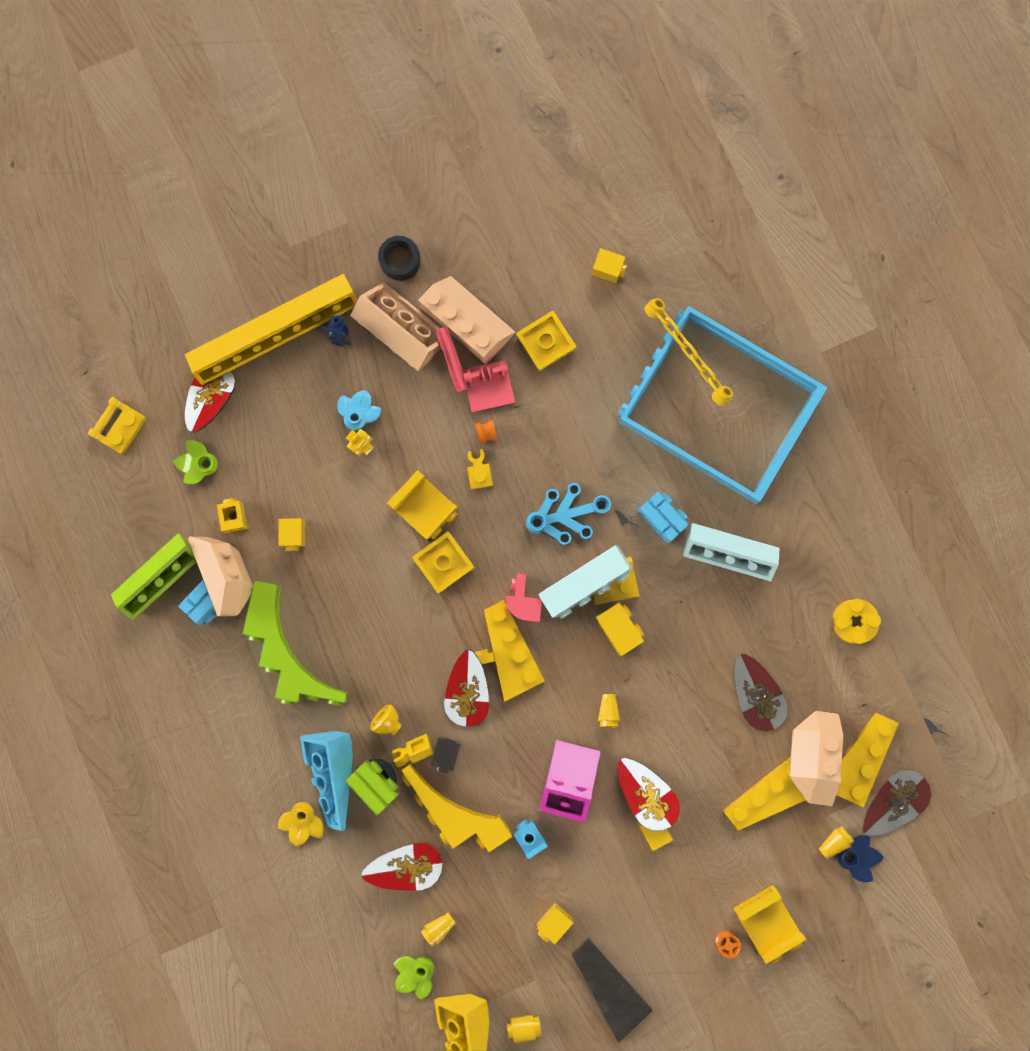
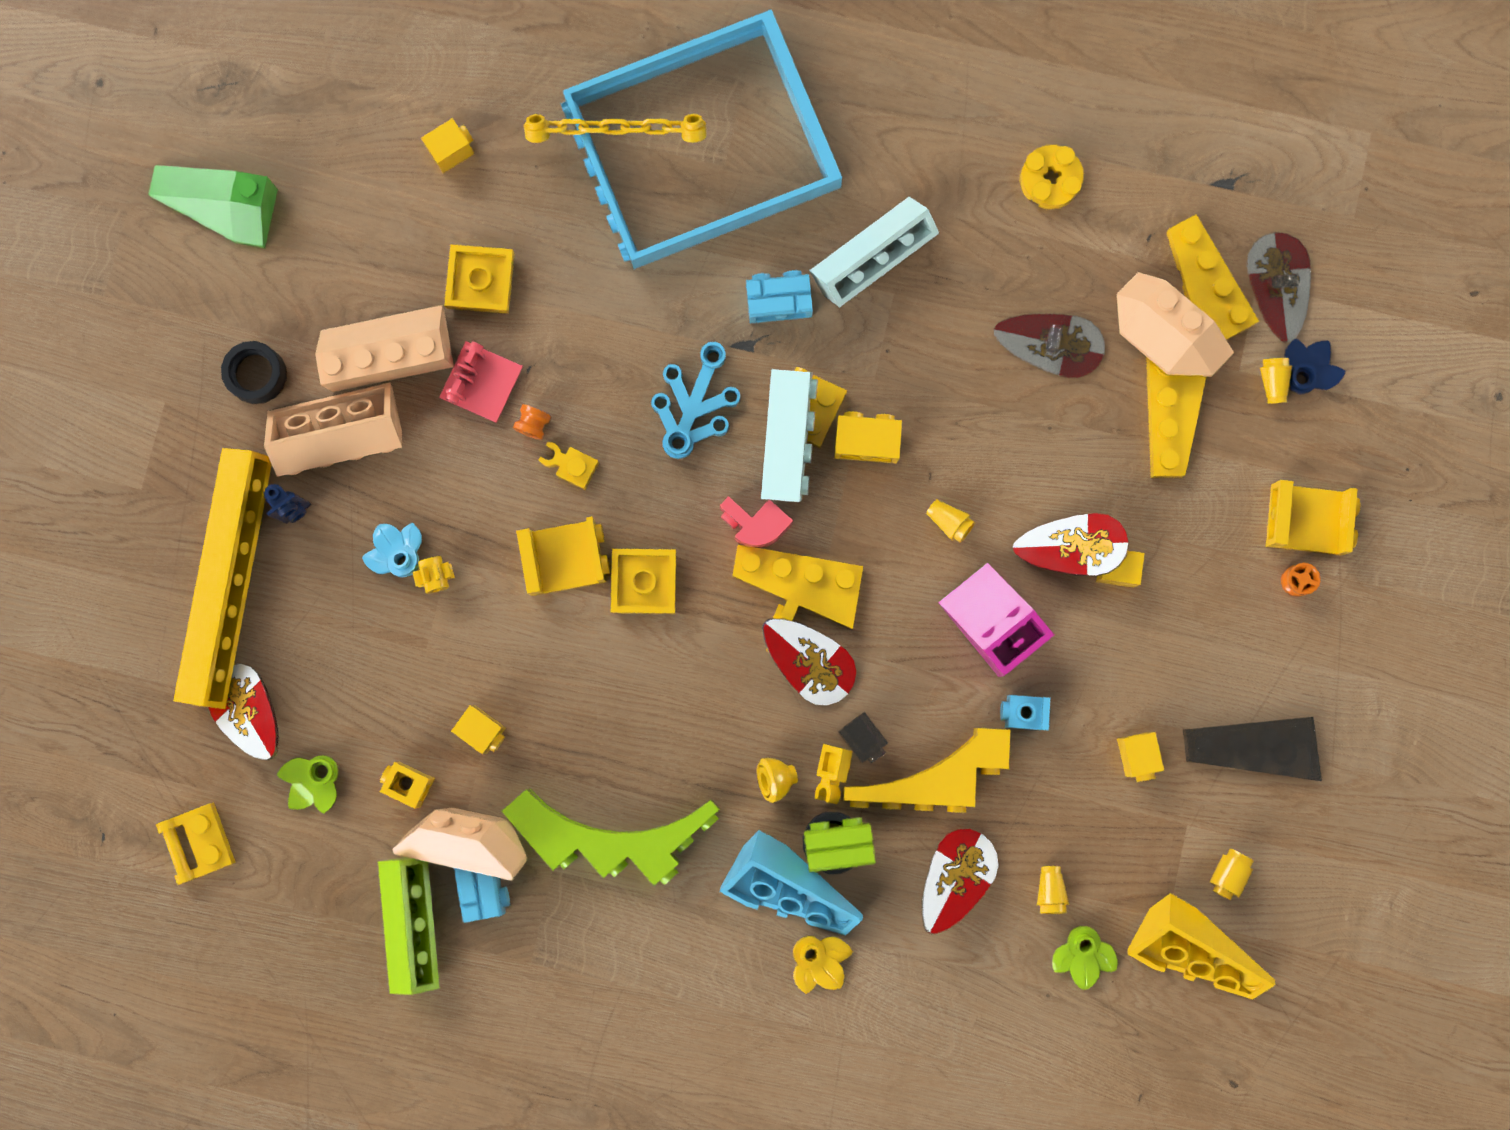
camera: 55 degrees left, 0 degrees up
(451, 358) = (417, 398): coral axle -> none
(482, 167) = (222, 200): none -> wedge

